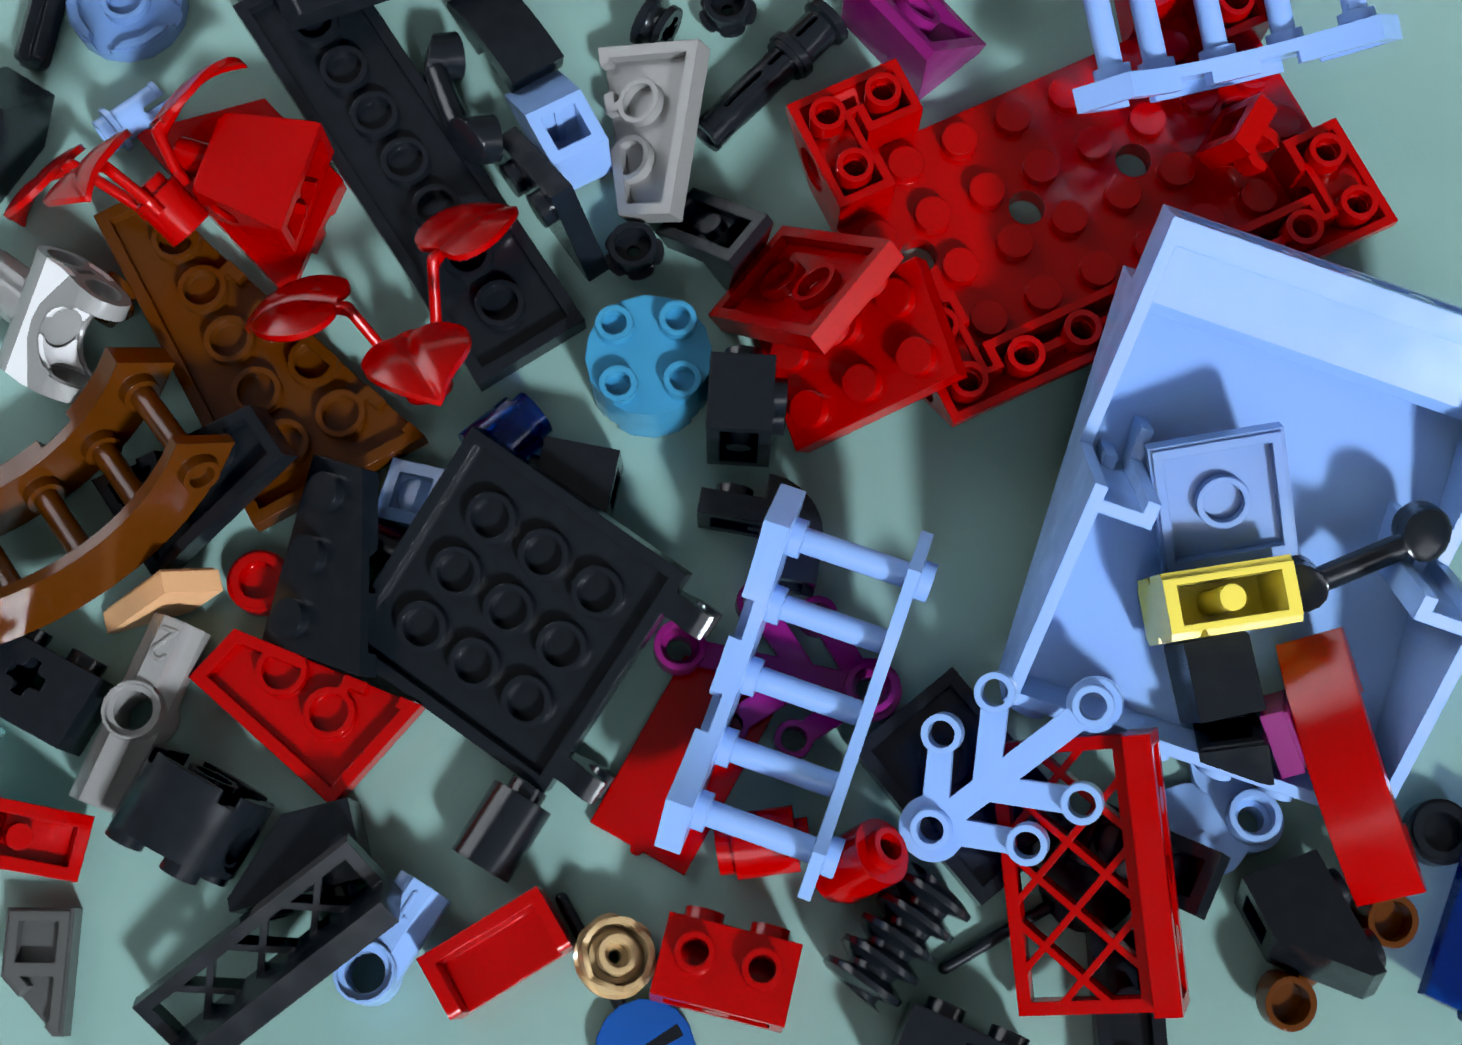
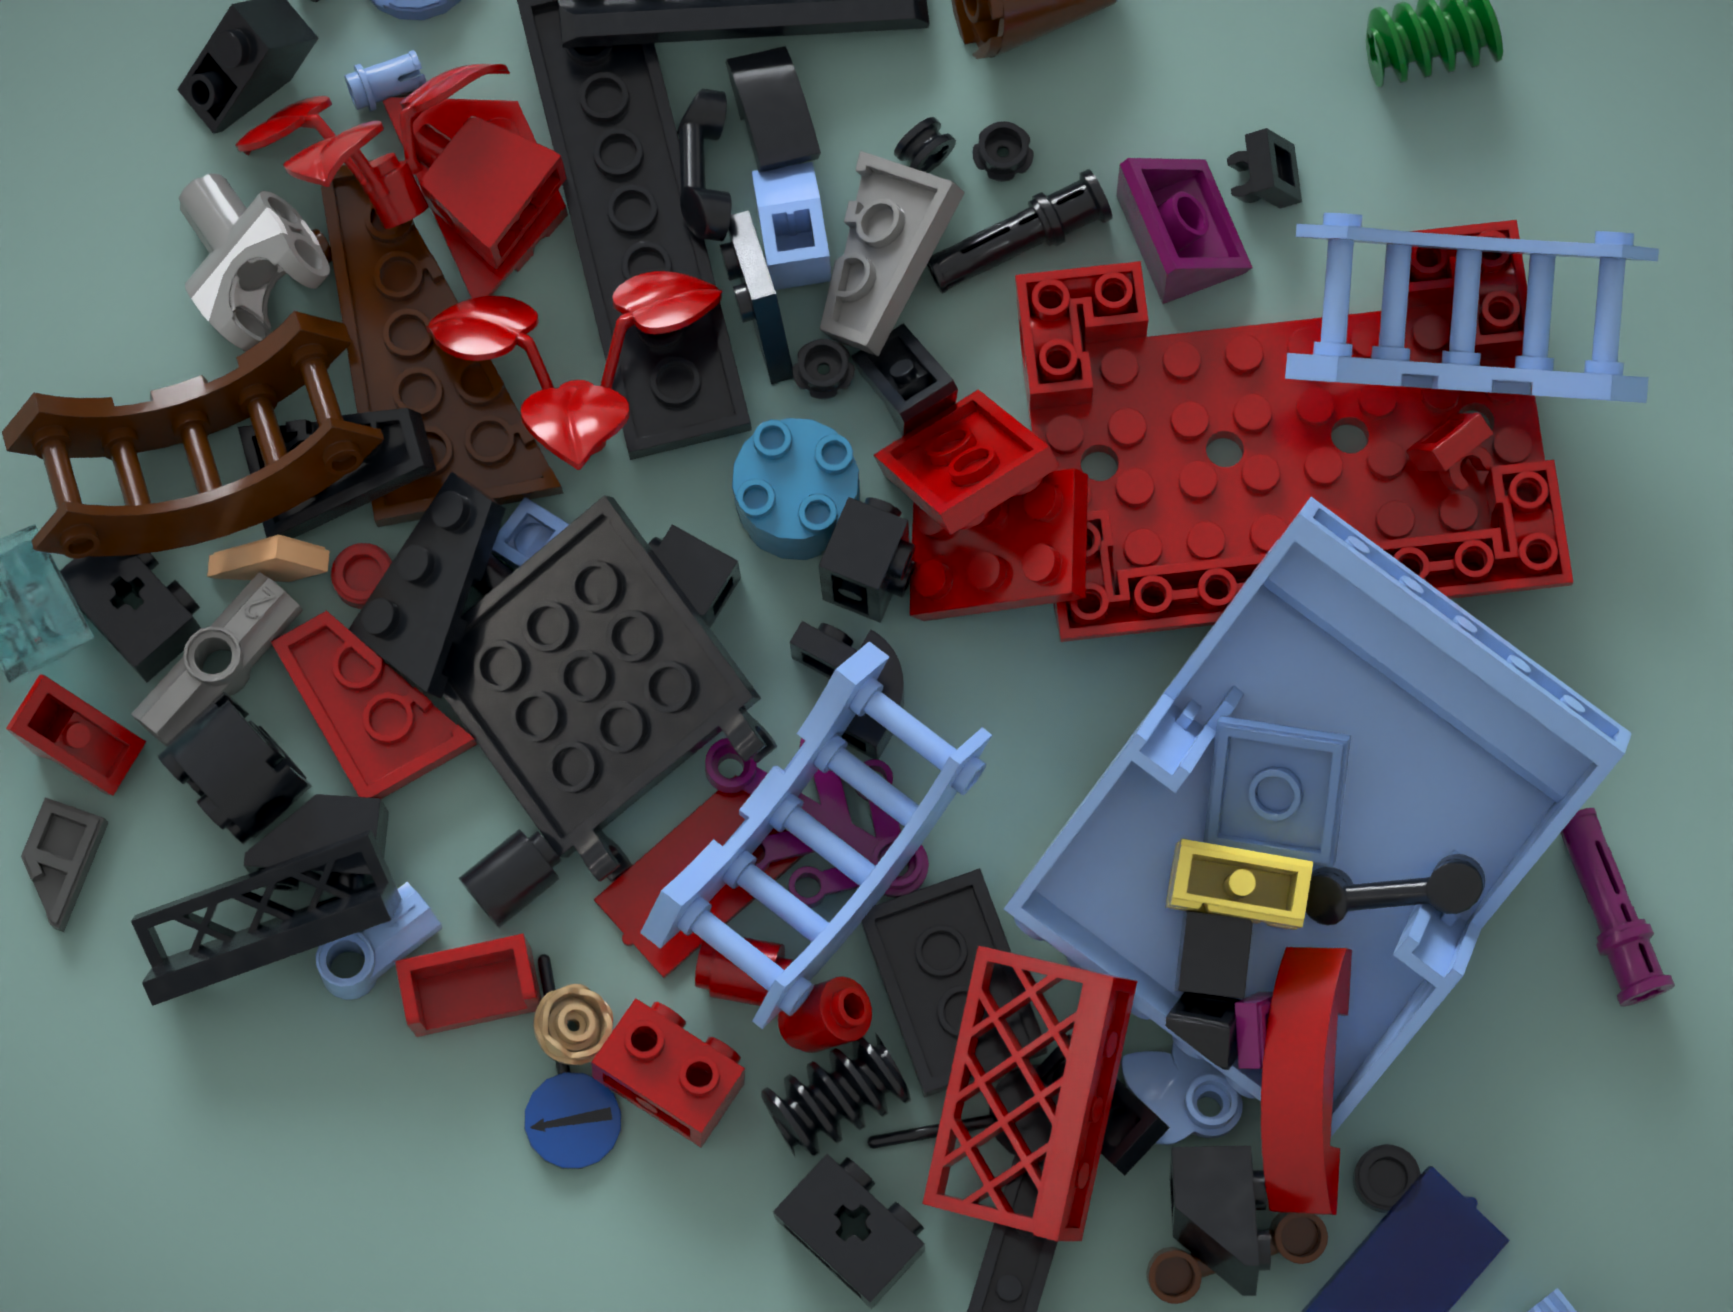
camera: 25 degrees right, 0 degrees up
(515, 423) = (648, 504): clear blue brick -> none
(1000, 777) = (976, 974): light blue plant -> none

